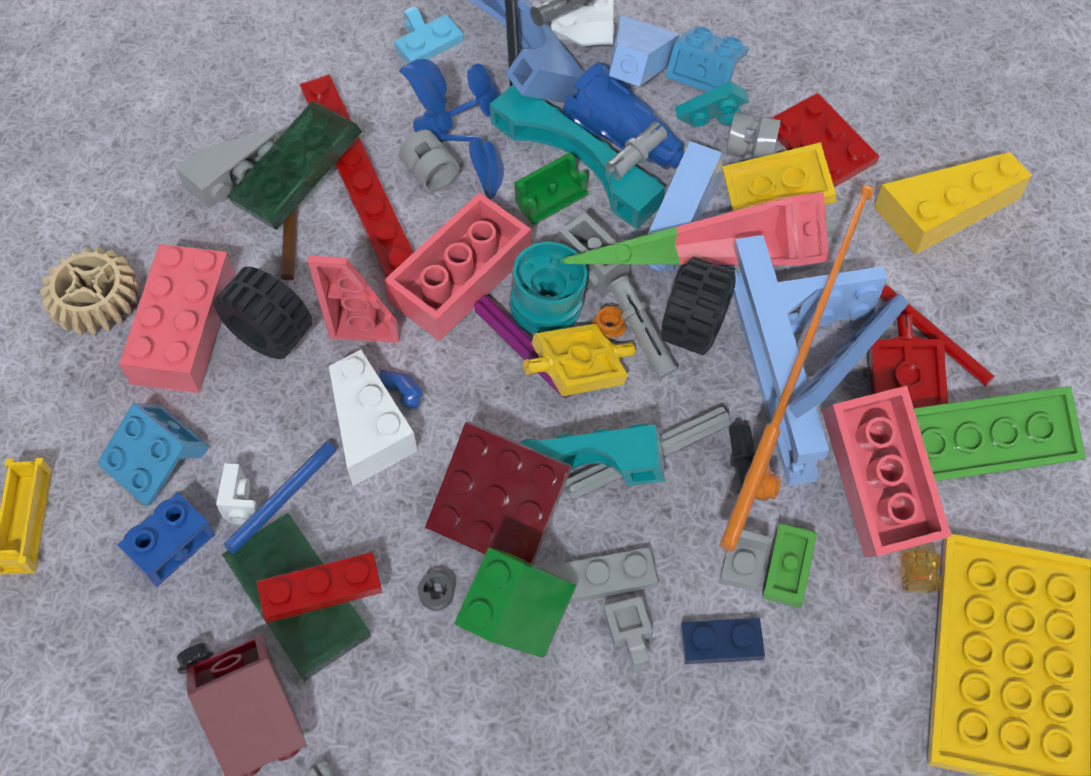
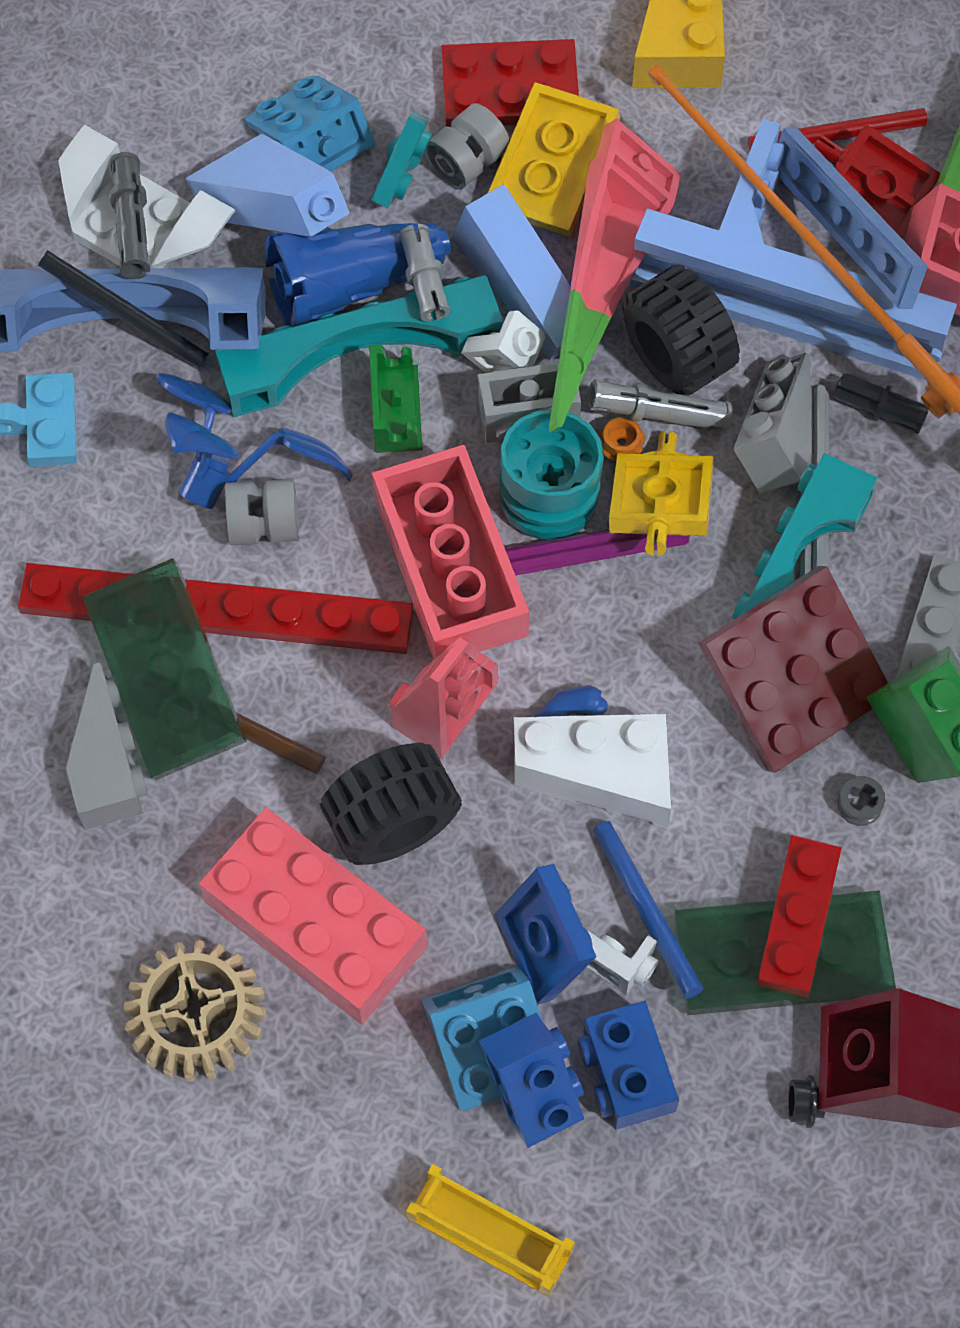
camera: 60 degrees left, 5 degrees up
(118, 481) = (533, 1078): none -> blue brick
(233, 434) = (545, 933): none -> blue plate
(625, 222) = (510, 349): none -> white bracket
(679, 401) = (777, 427): none -> light grey slope

